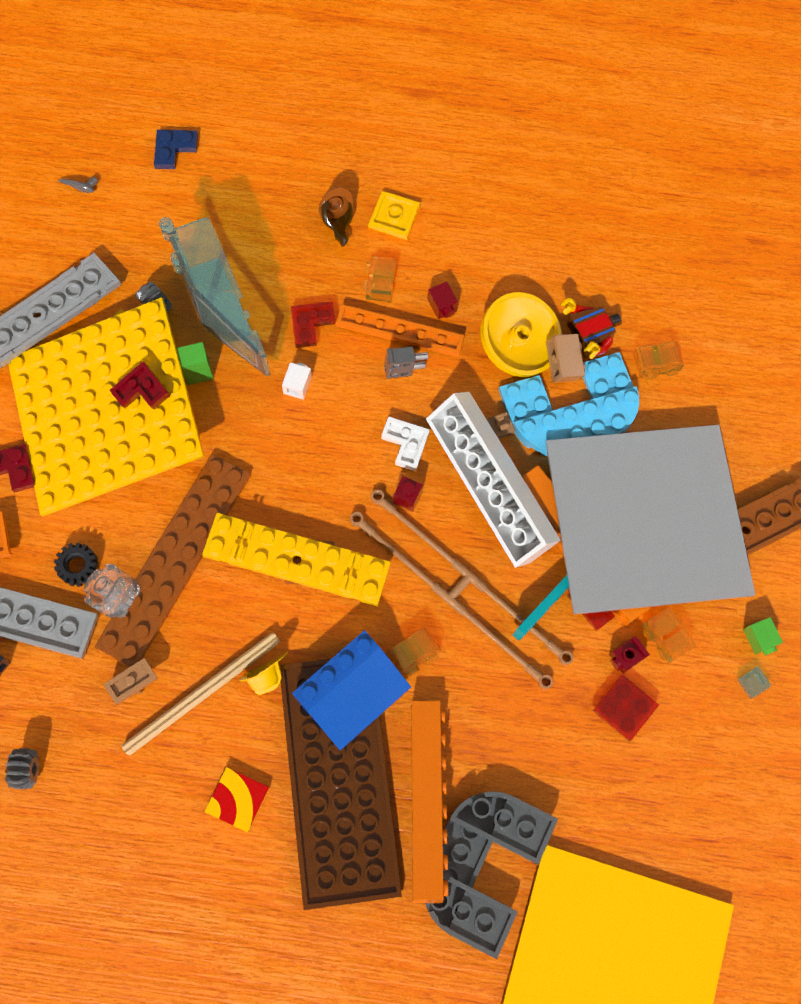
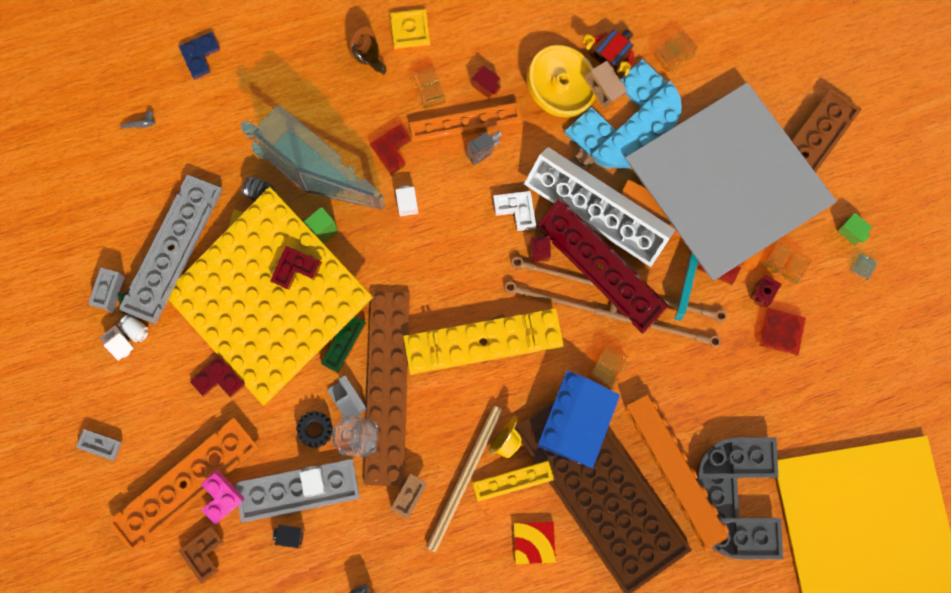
camera: 25 degrees left, 5 degrees up
(41, 615) = (312, 481): none -> white brick
(127, 549) = (346, 398): none -> light grey panel
(154, 492) = (343, 344): none -> dark green plate
(250, 721) = (513, 480): none -> yellow tile
(468, 562) = (616, 279): none -> dark red piece

